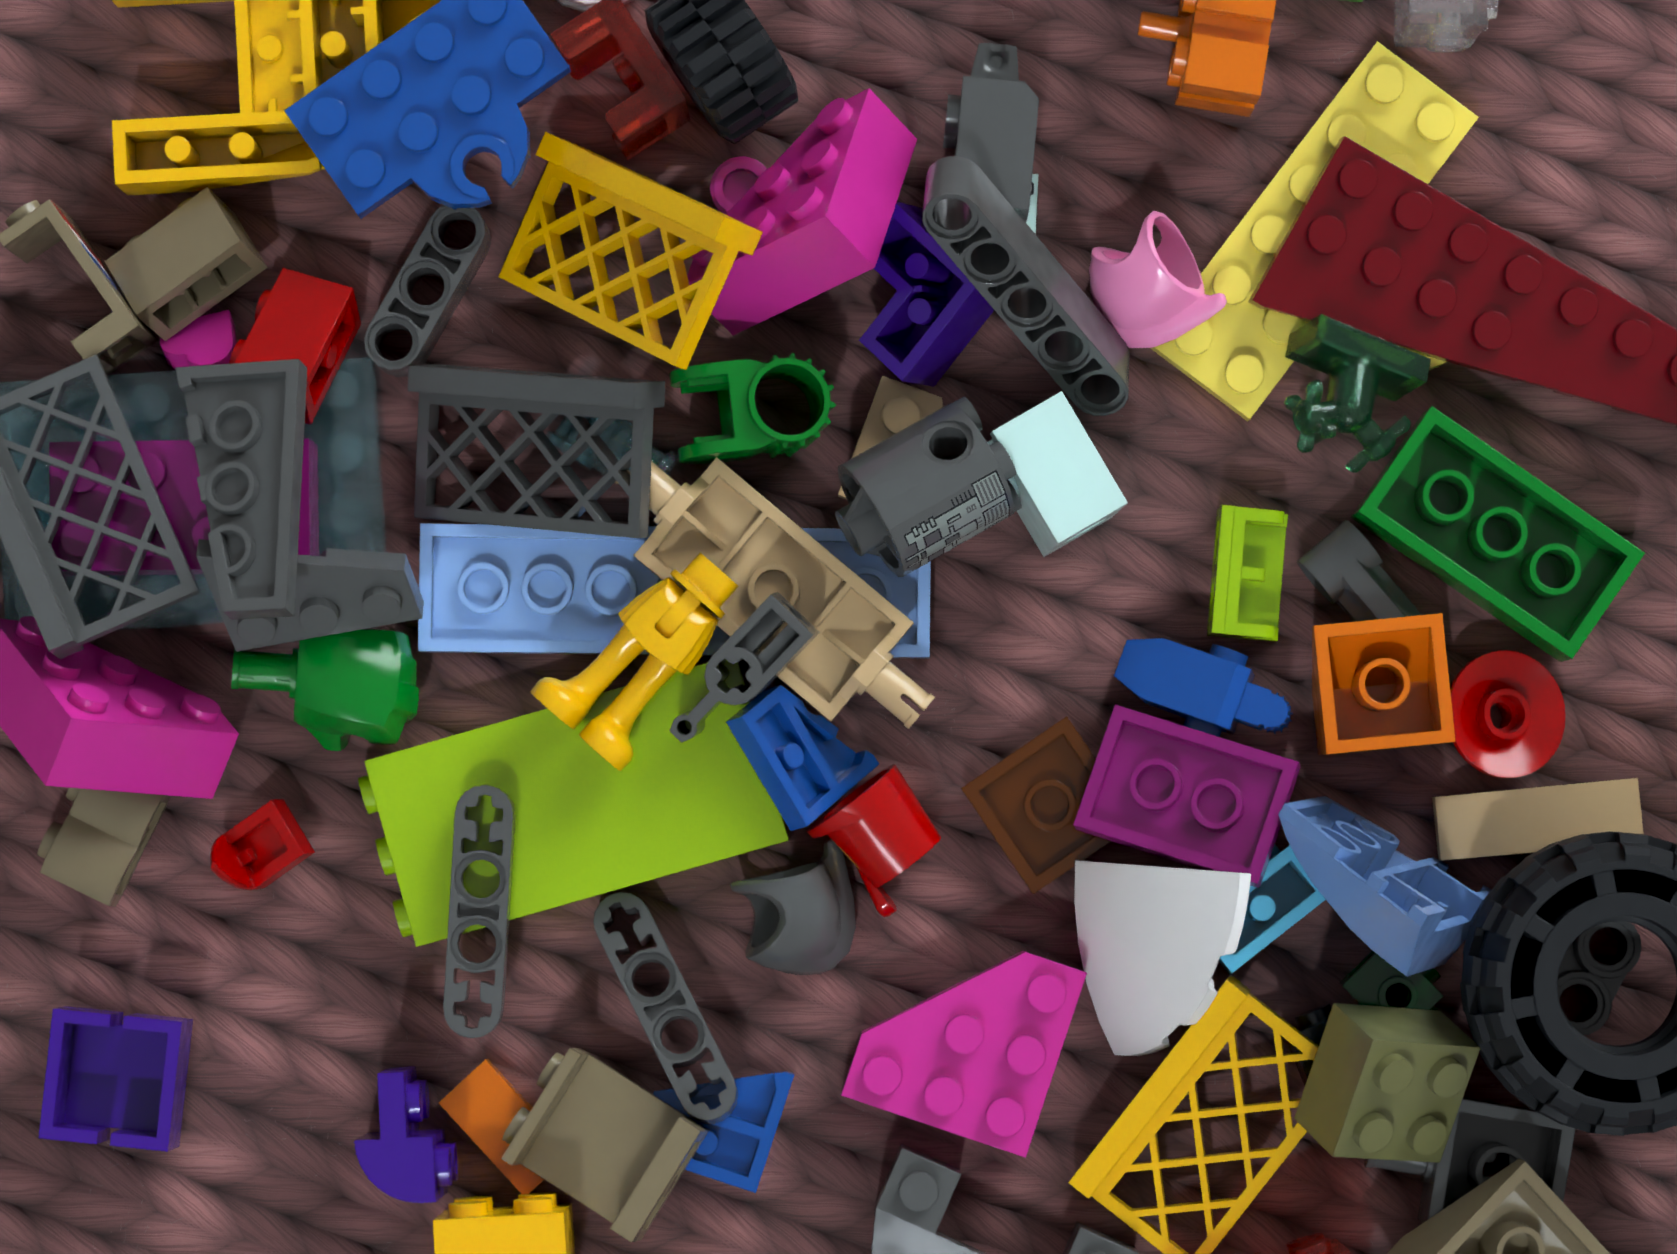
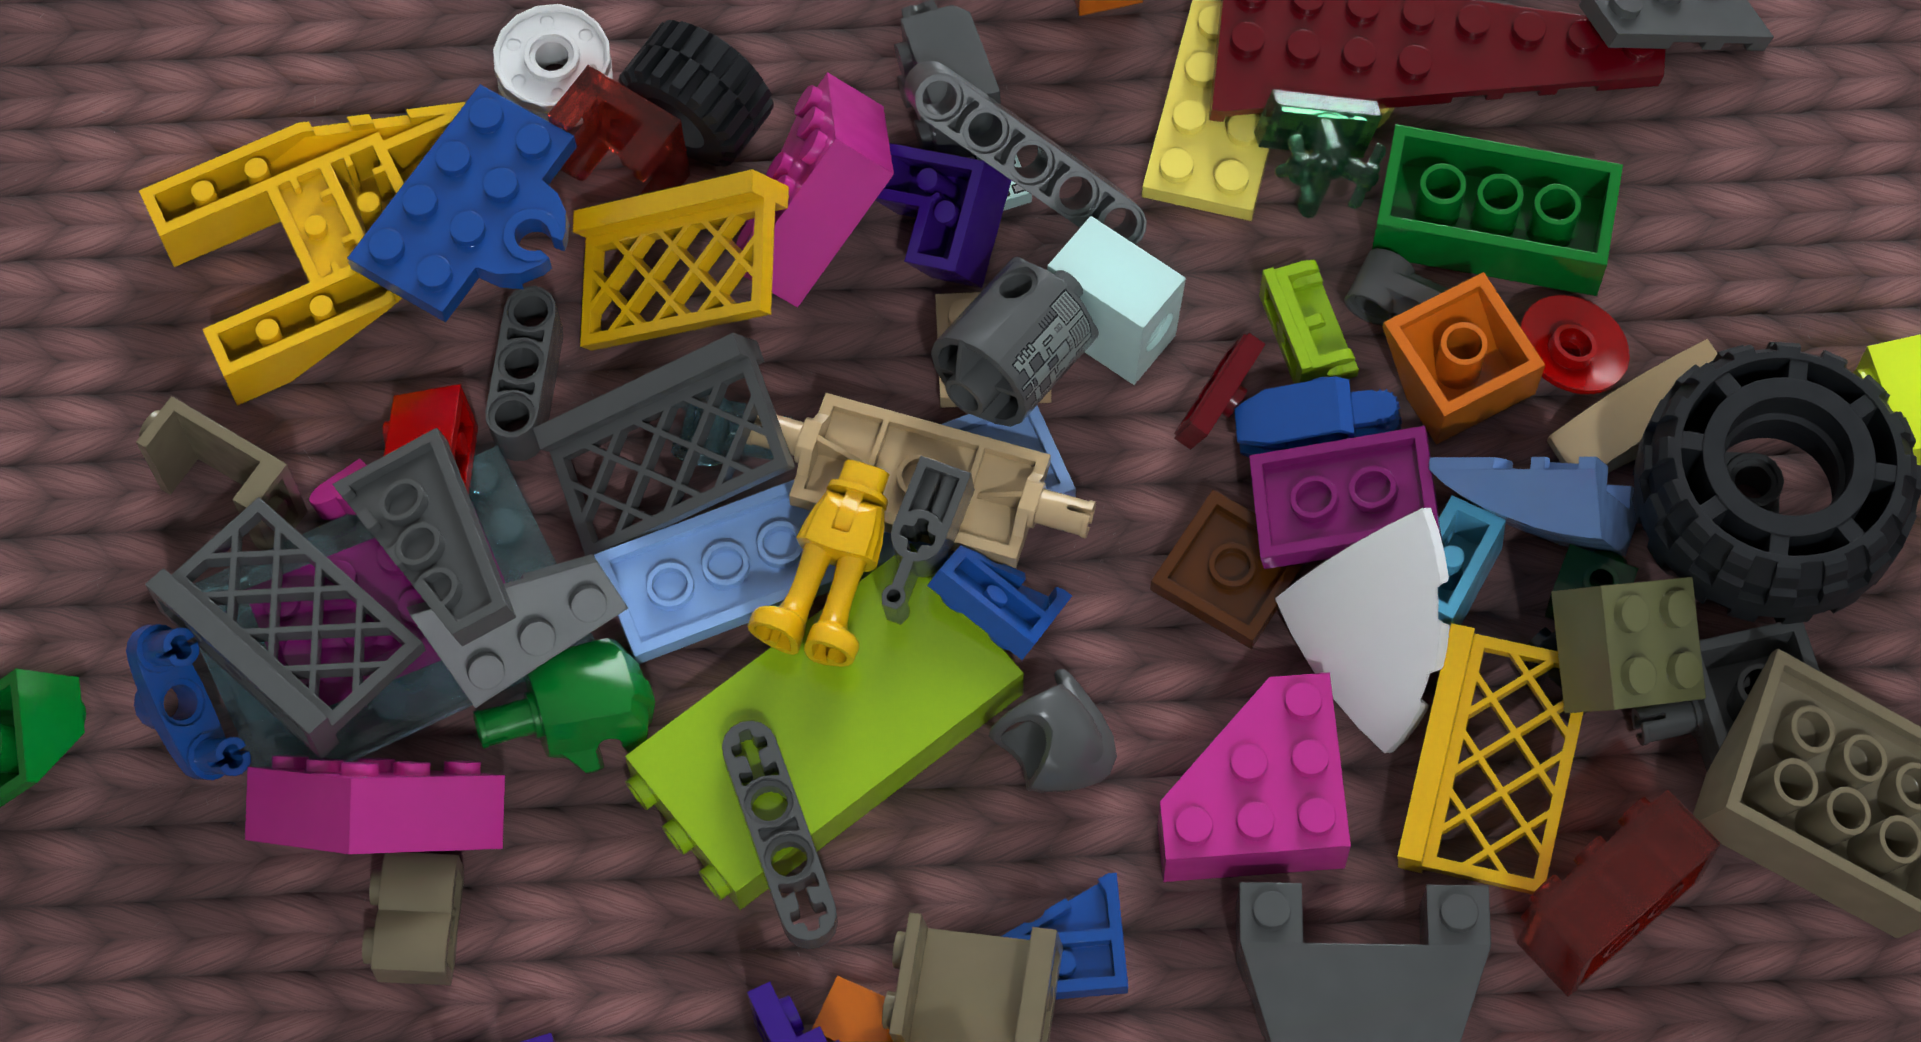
camera: 25 degrees left, 20 degrees down
(185, 264) = (313, 422): dark tan brick -> none
(260, 848) = (562, 877): red plate -> none
(670, 1005) = (983, 857): dark grey beam -> none
(741, 427) = (834, 329): green piece -> none
(879, 831) = (1098, 641): red hat -> none
(1123, 611) = (1220, 392): none -> dark red plate
(1152, 290) = (1125, 138): bright pink piece -> none

